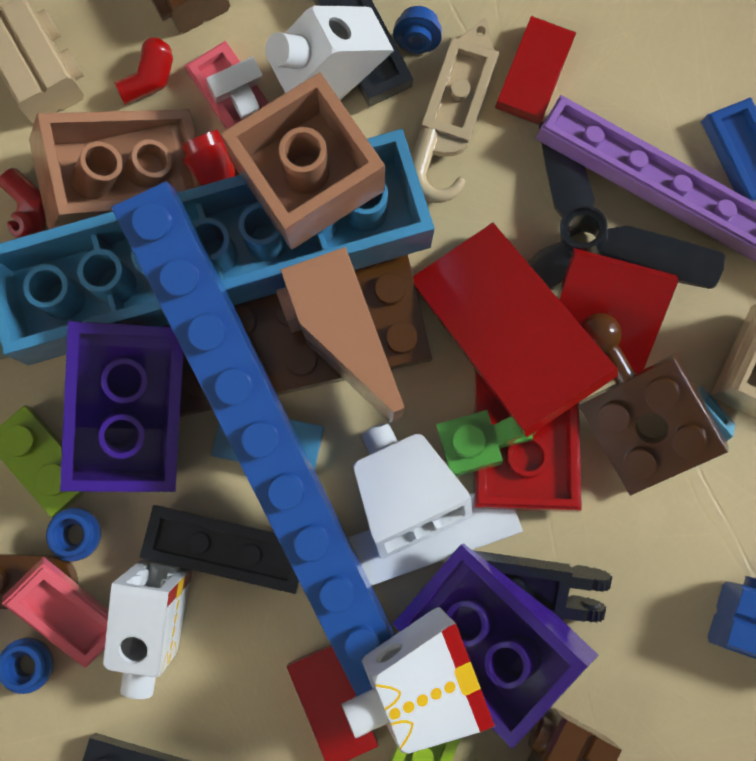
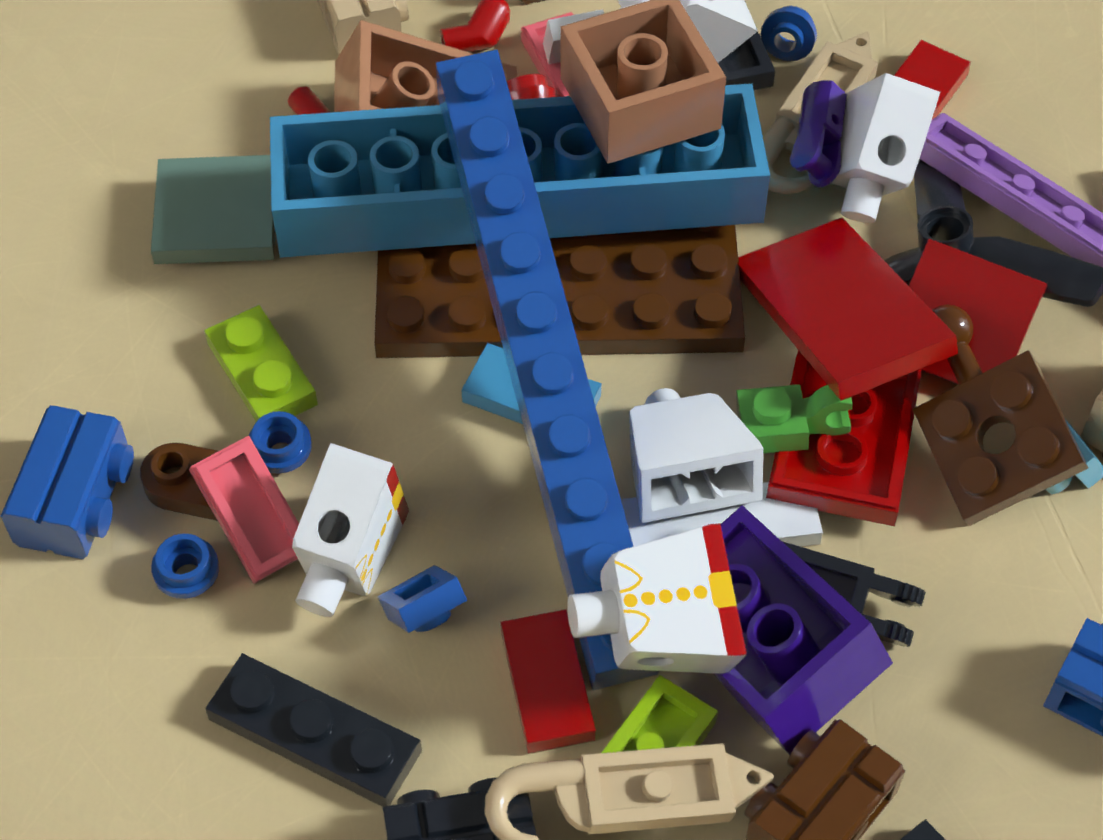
camera: 15 degrees right, 25 degrees down
(121, 408) = (379, 299): dark purple slope -> none
(218, 549) = (463, 487): black plate -> none
(220, 663) = (423, 600): none -> blue plate
(331, 311) = (645, 261): nougat slope -> none
(463, 147) = (819, 132): none -> dark purple bar
(515, 151) = (882, 141): none -> white torso

